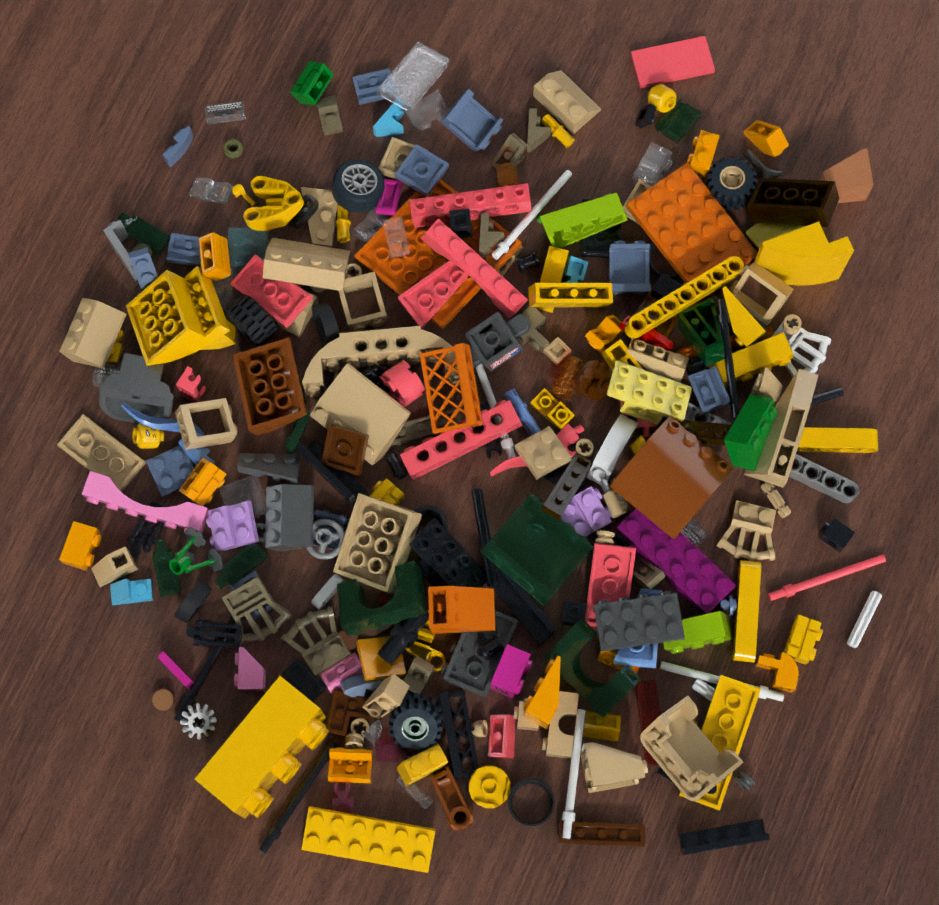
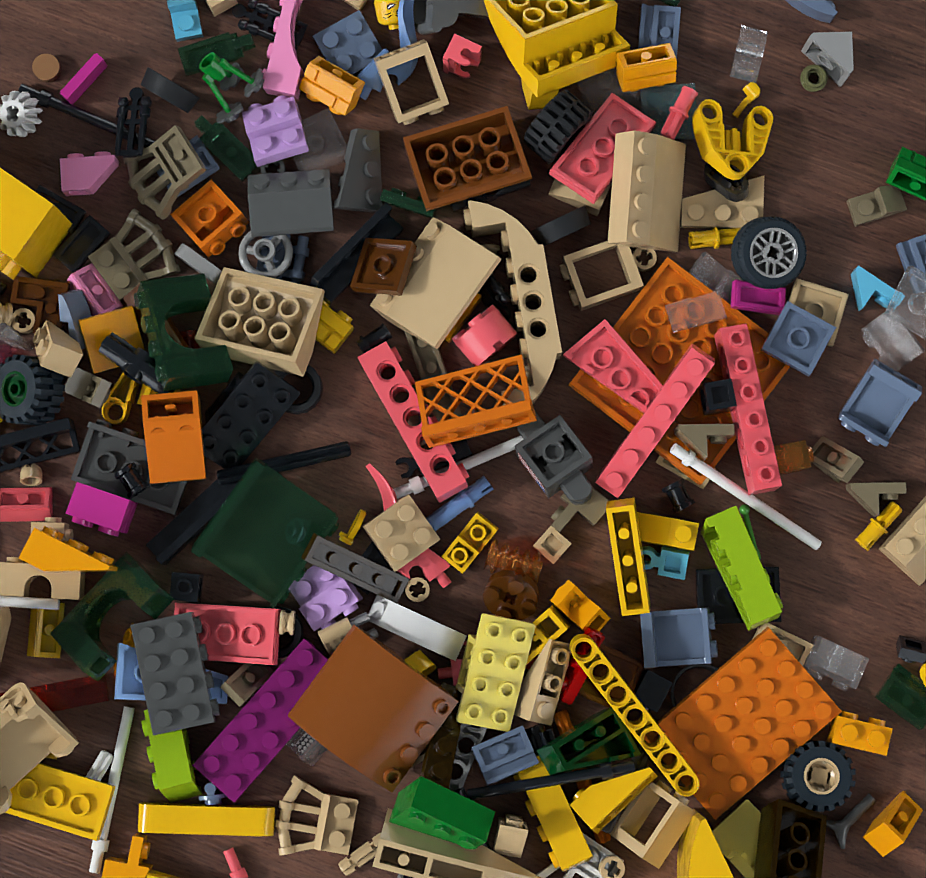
camera: 85 degrees right, 10 degrees up
(219, 129) = (832, 52): none -> light grey slope
(225, 112) = (868, 62): slope -> none
(249, 238) = (679, 112): none -> coral axle
(294, 579) = (210, 219): none -> orange plate
(543, 491) = (348, 538): none -> yellow piece

